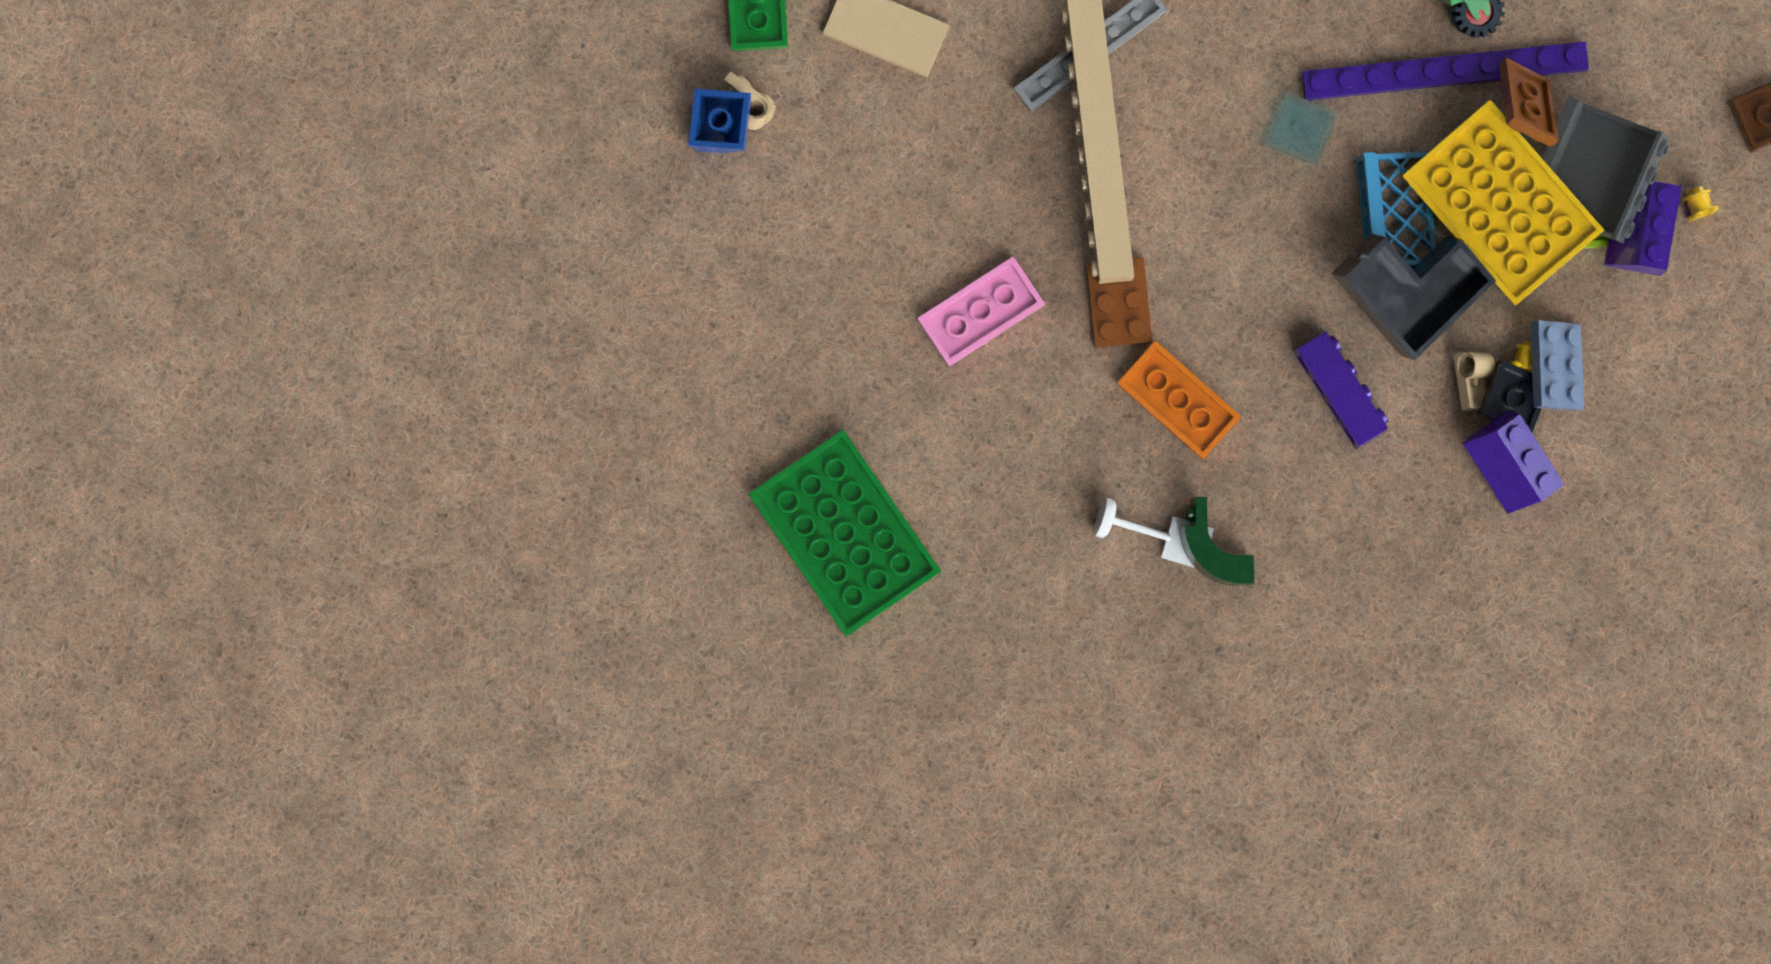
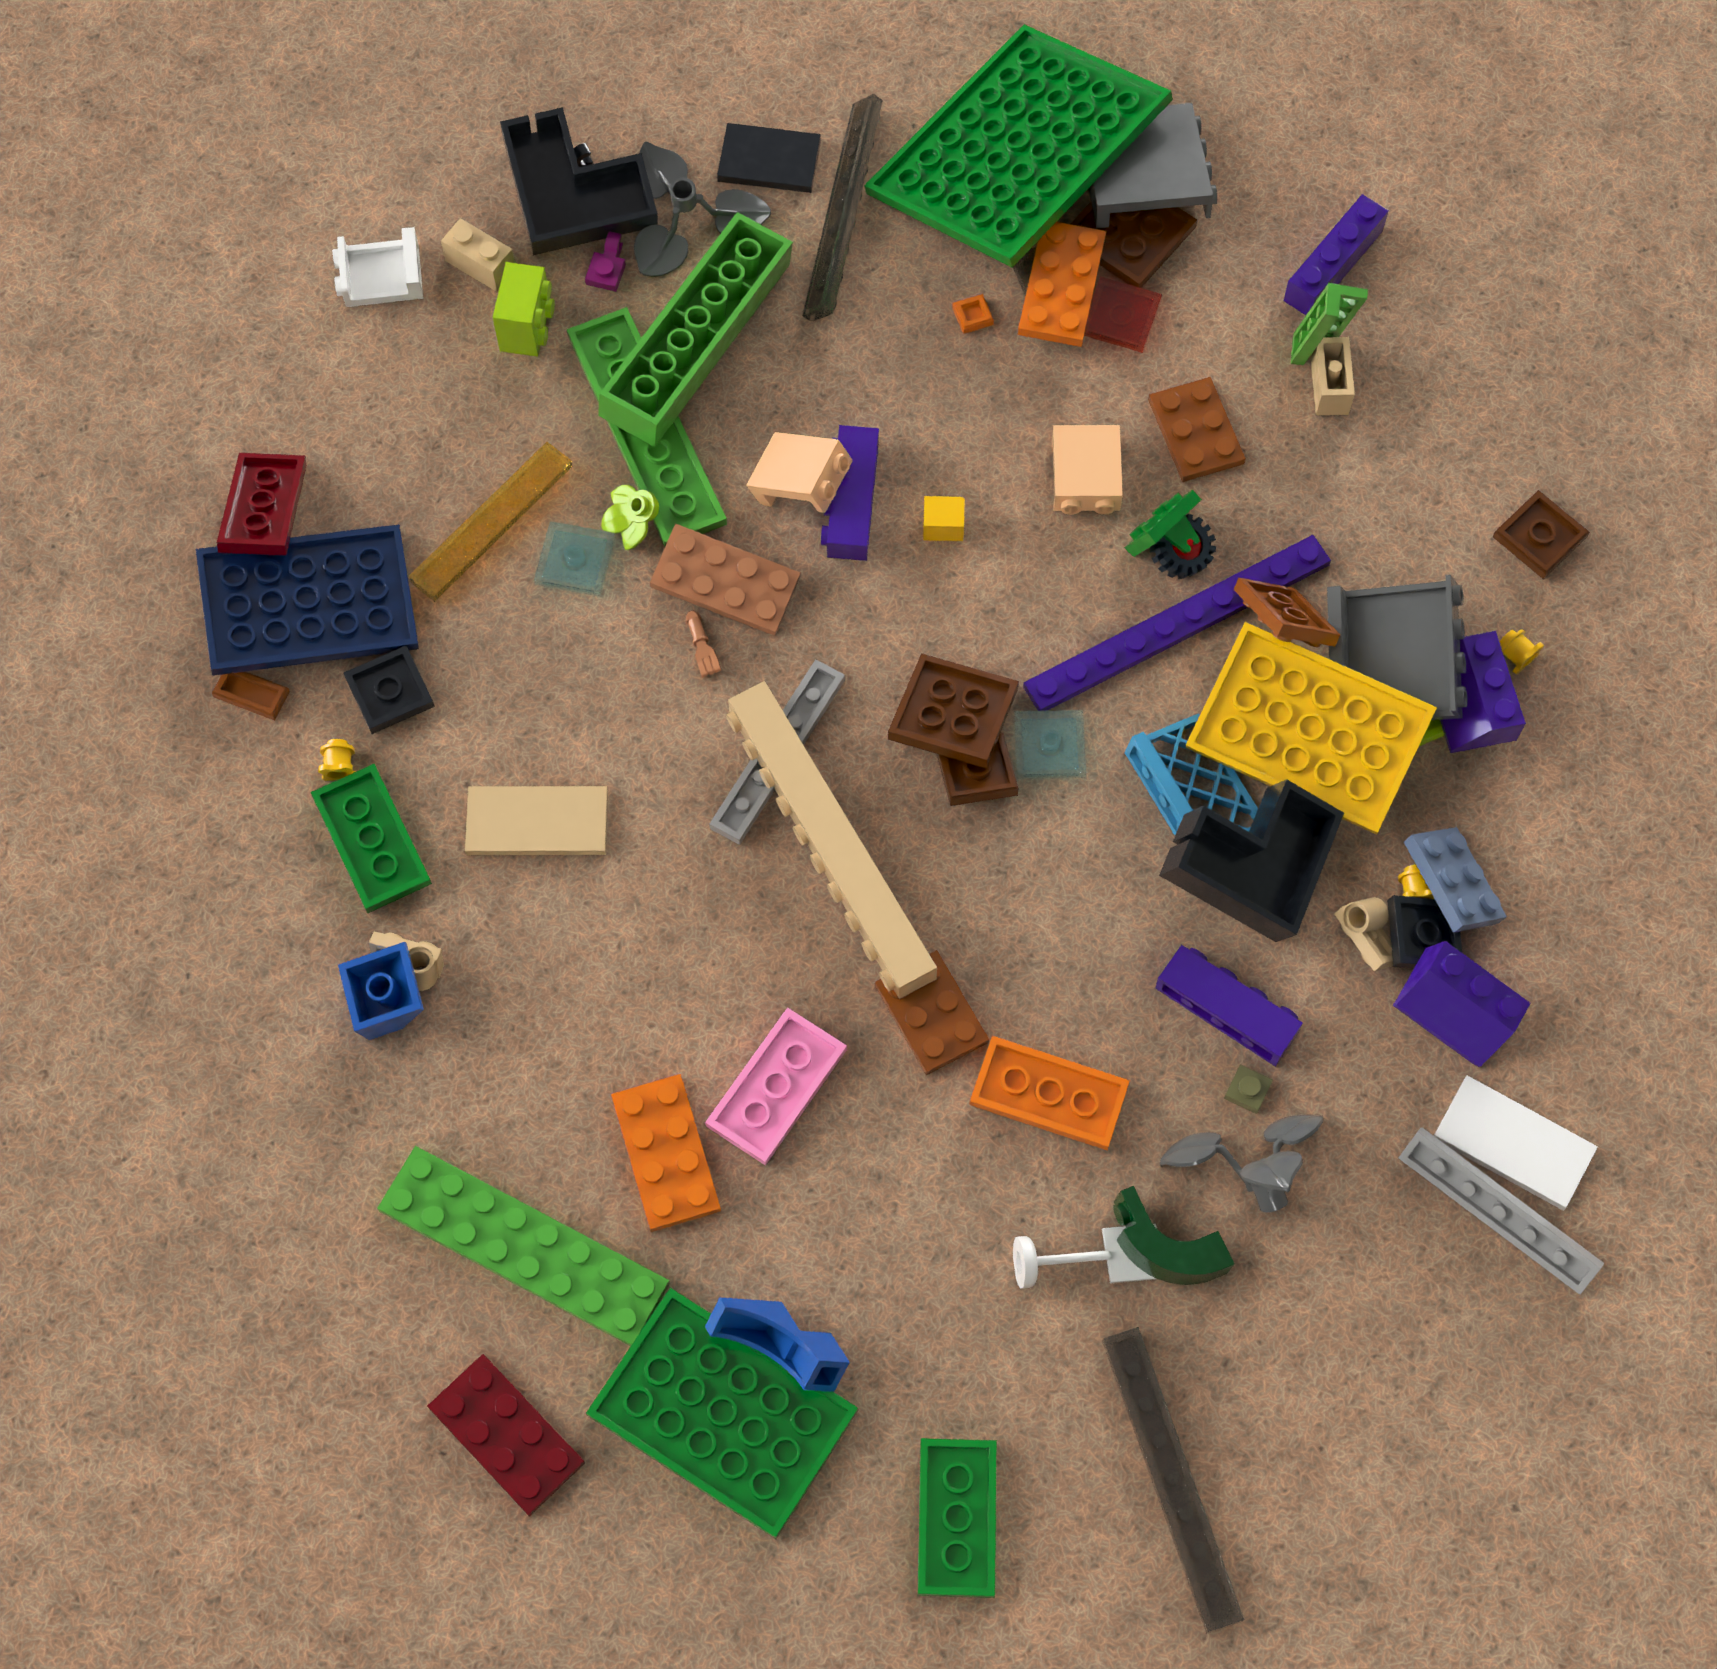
camera: 25 degrees left, 15 degrees down
(686, 484) = (506, 1434): none -> dark red plate
(750, 353) = (524, 1246): none -> bright green plate
(880, 327) = (666, 1153): none -> orange plate
(900, 487) = (769, 1328): none -> blue arch
(978, 676) = (957, 1518): none -> green plate
(1141, 713) = (1173, 1481): none -> clear smoke plate
(1235, 127) = (972, 783): none -> reddish brown plate
(1237, 73) = (953, 710): none -> reddish brown plate
(1304, 532) = (1266, 1177): none -> dark grey plant
(1327, 458) = (1248, 1089): none -> olive plate
(1468, 625) = (1501, 1210): none -> light grey plate
(1504, 580) = (1515, 1142): none -> white tile

